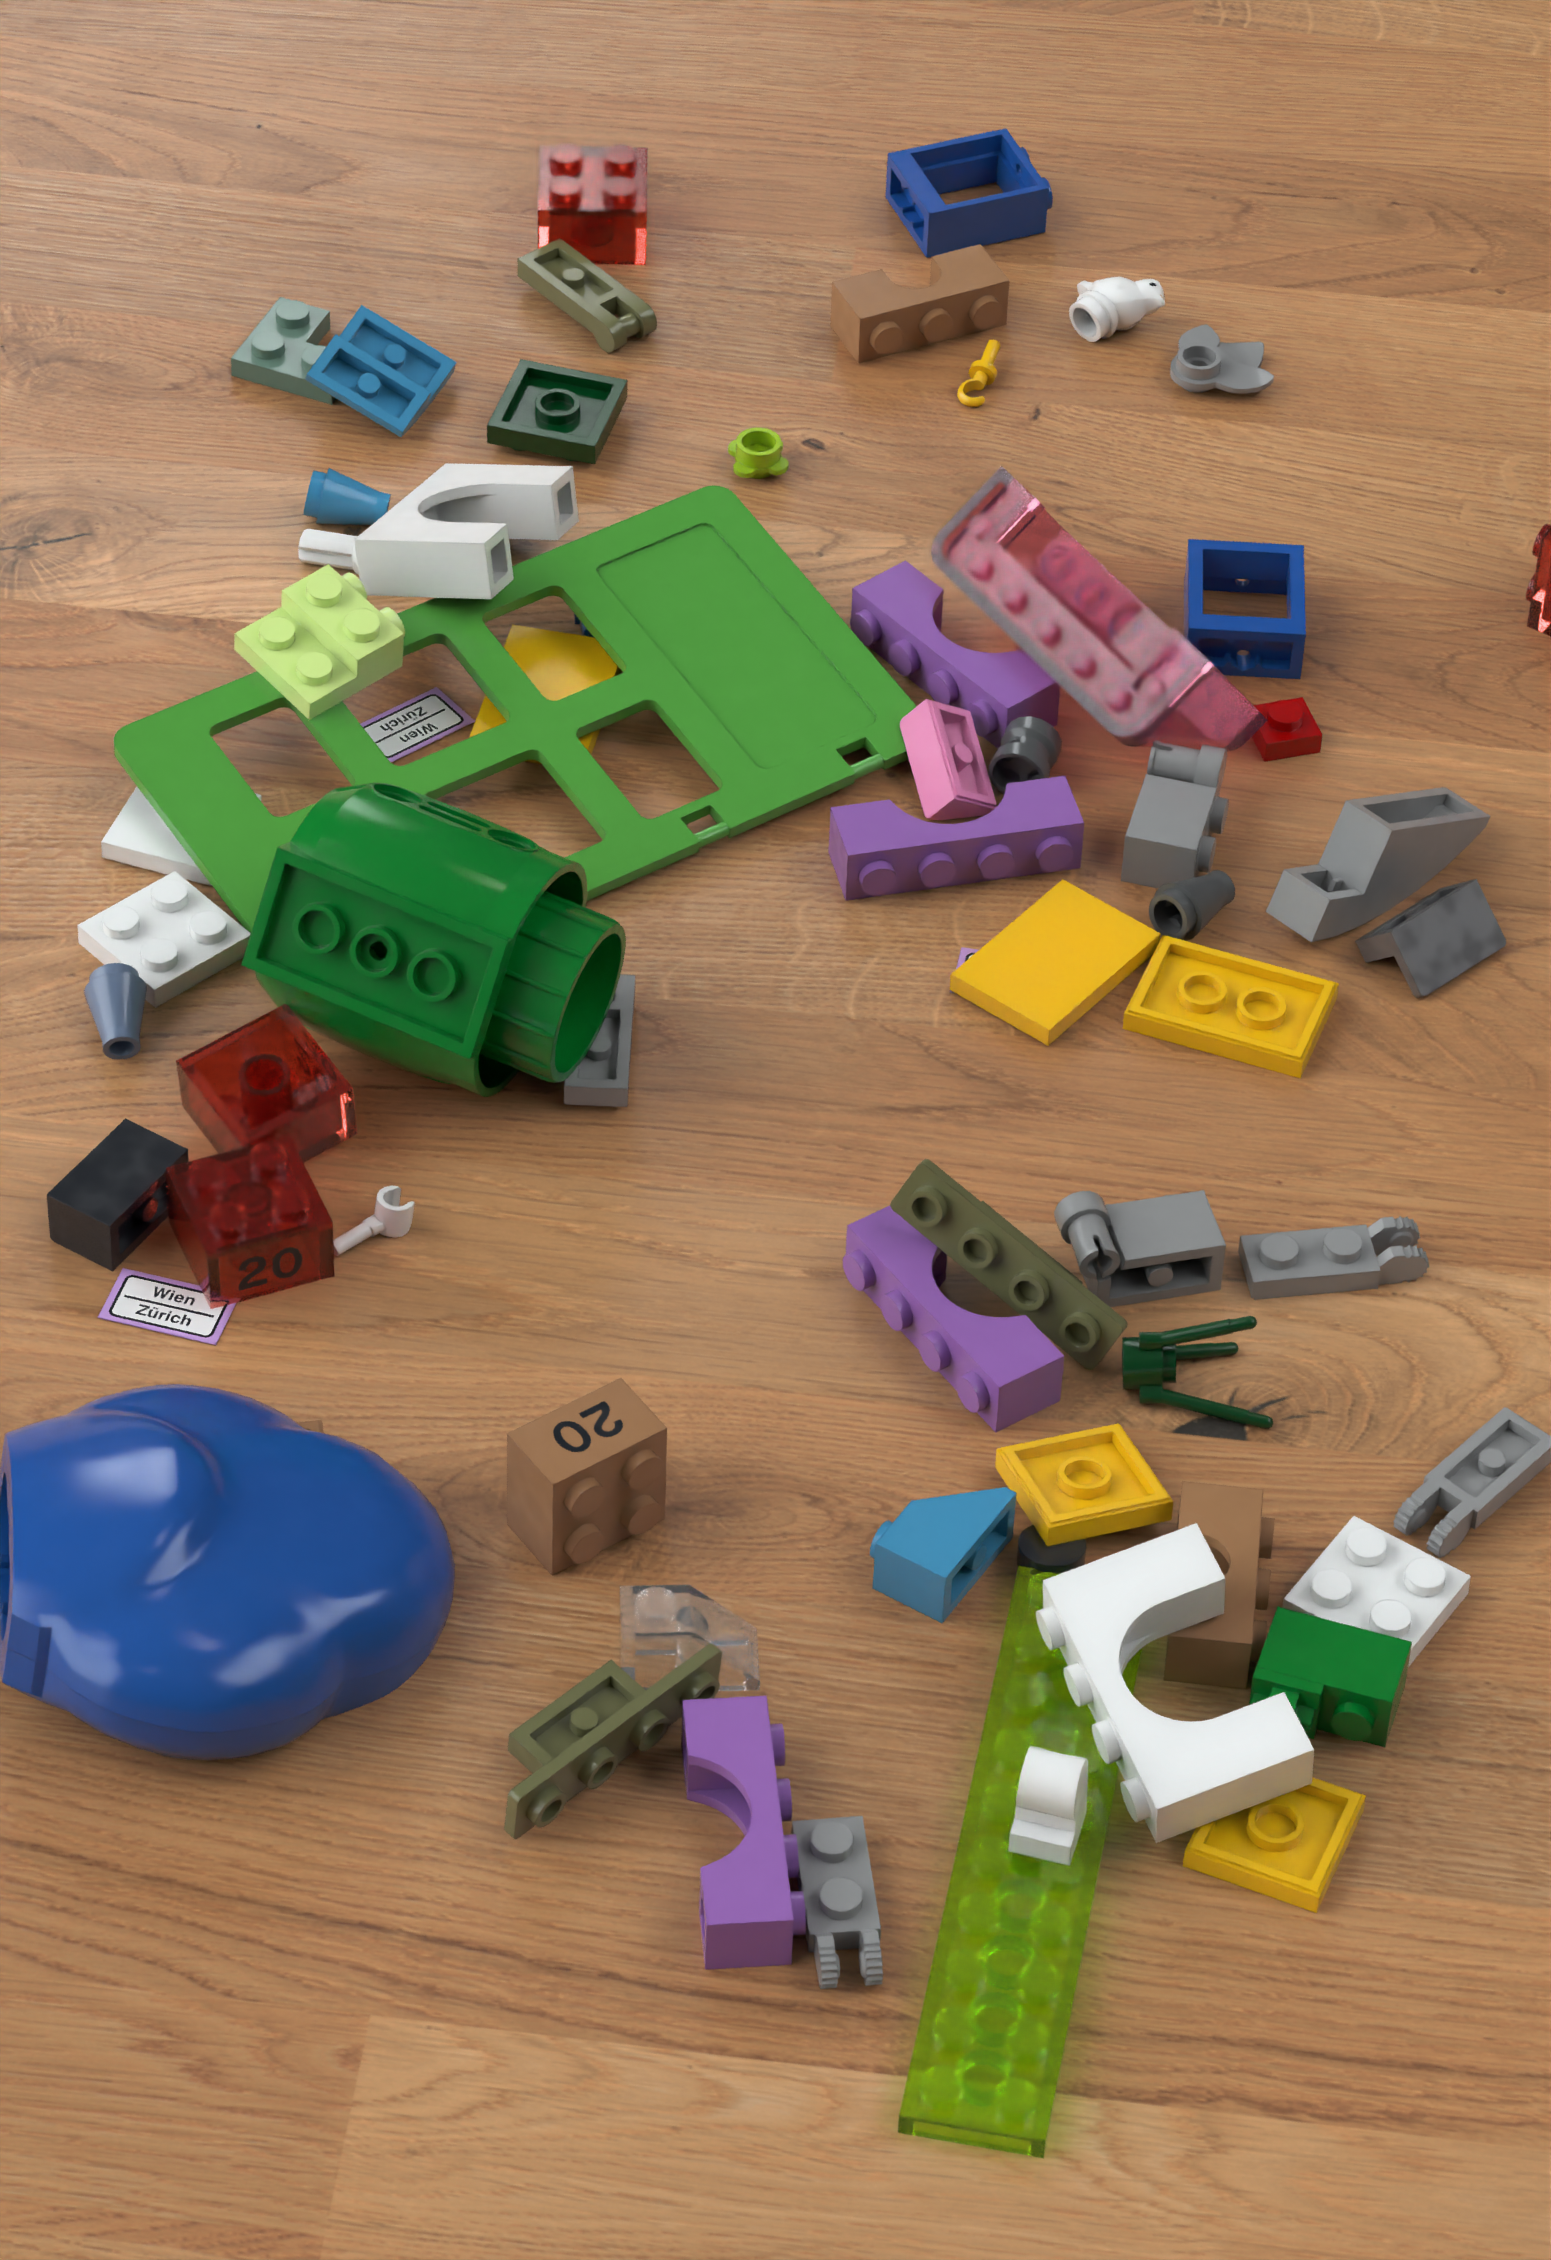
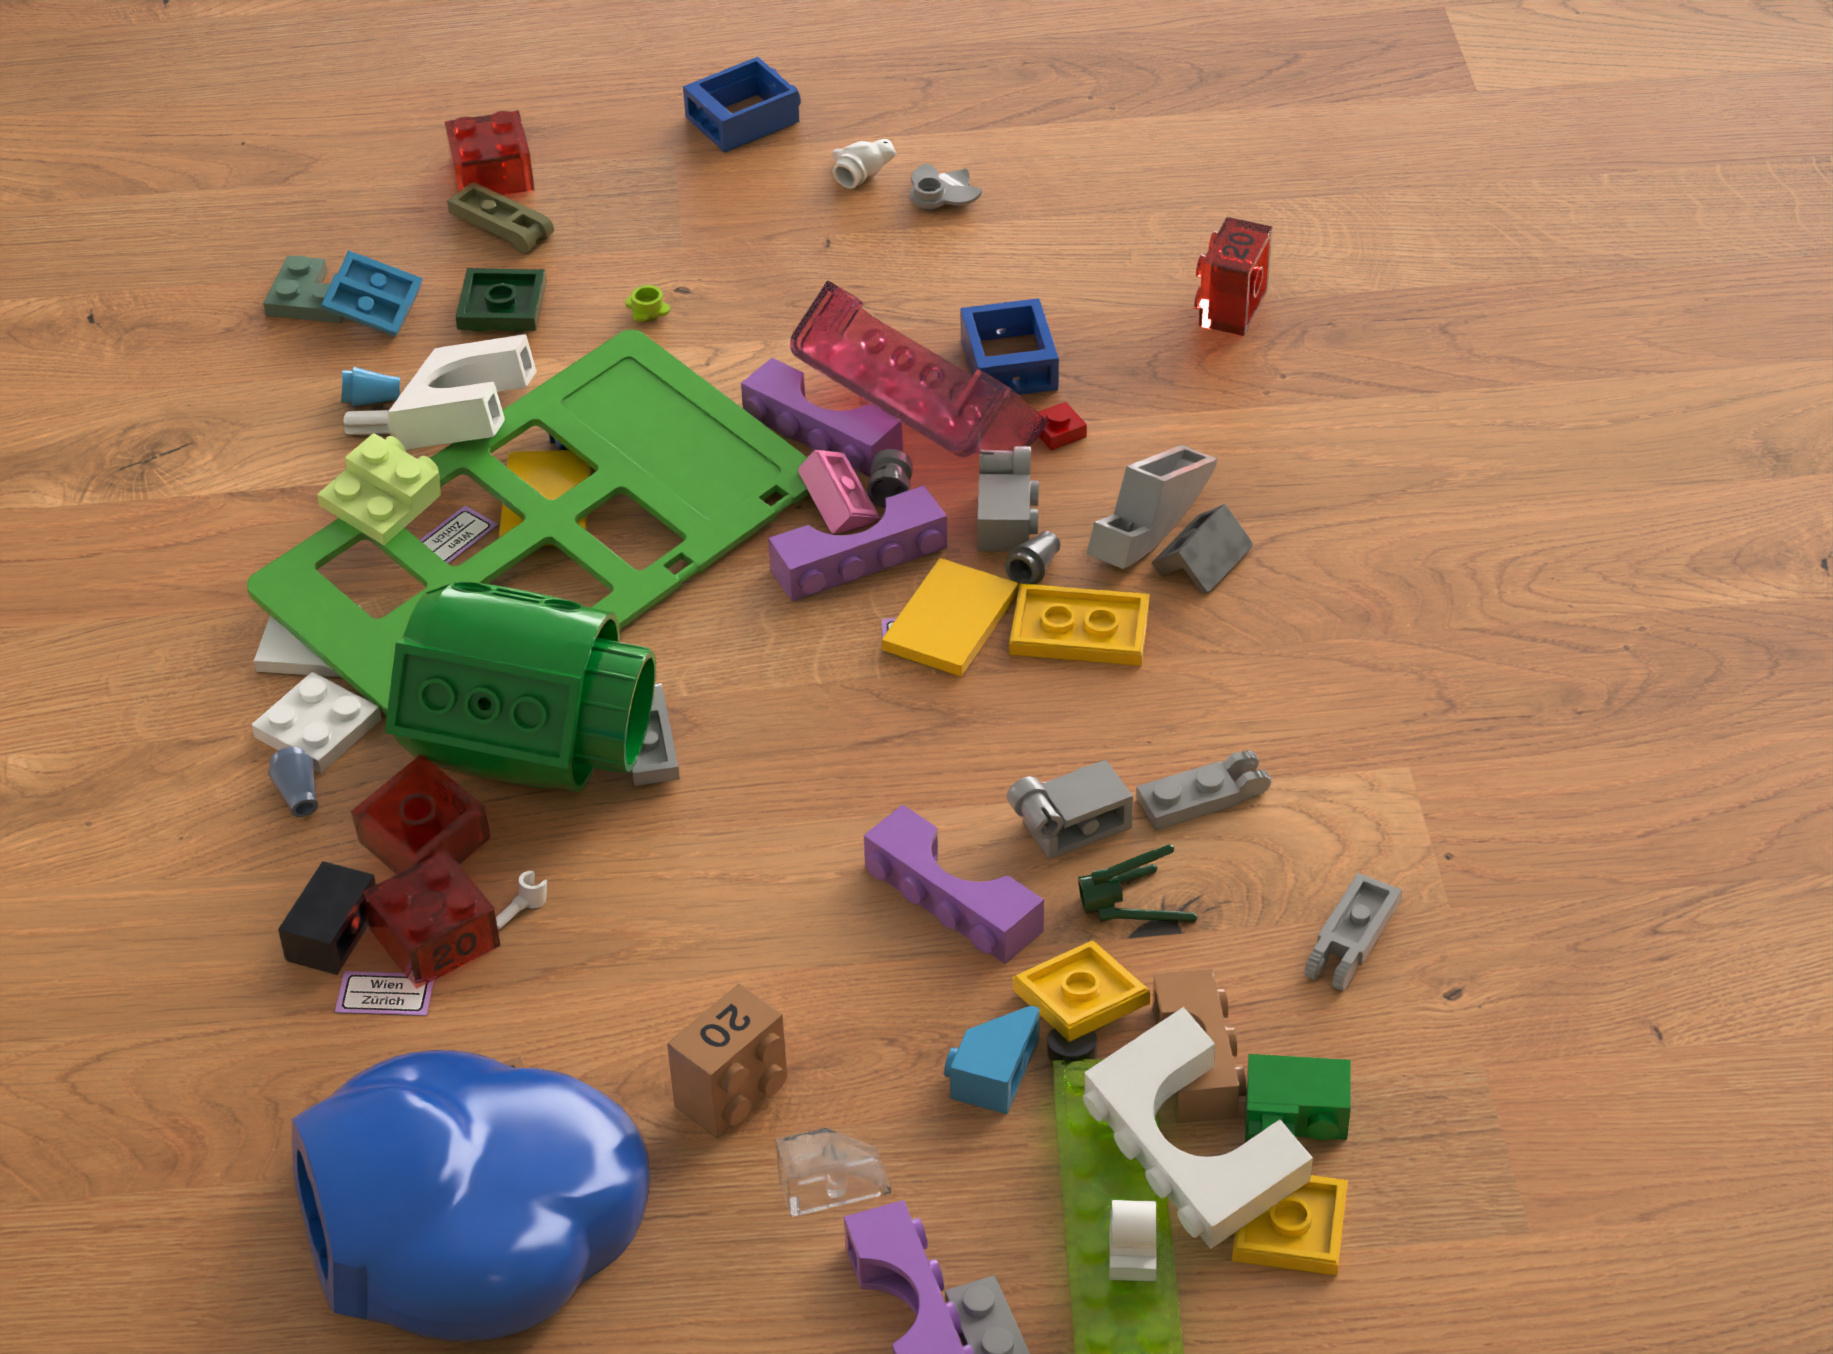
camera: 10 degrees left, 0 degrees up
(595, 1728) = (780, 1251): olive bracket -> none
(883, 319) = (708, 197): medium nougat arch -> none
(981, 373) = (784, 223): yellow hand -> none
(1008, 1264) = (986, 840): olive bracket -> none
(1380, 1586) = (1308, 1021): white plate -> none

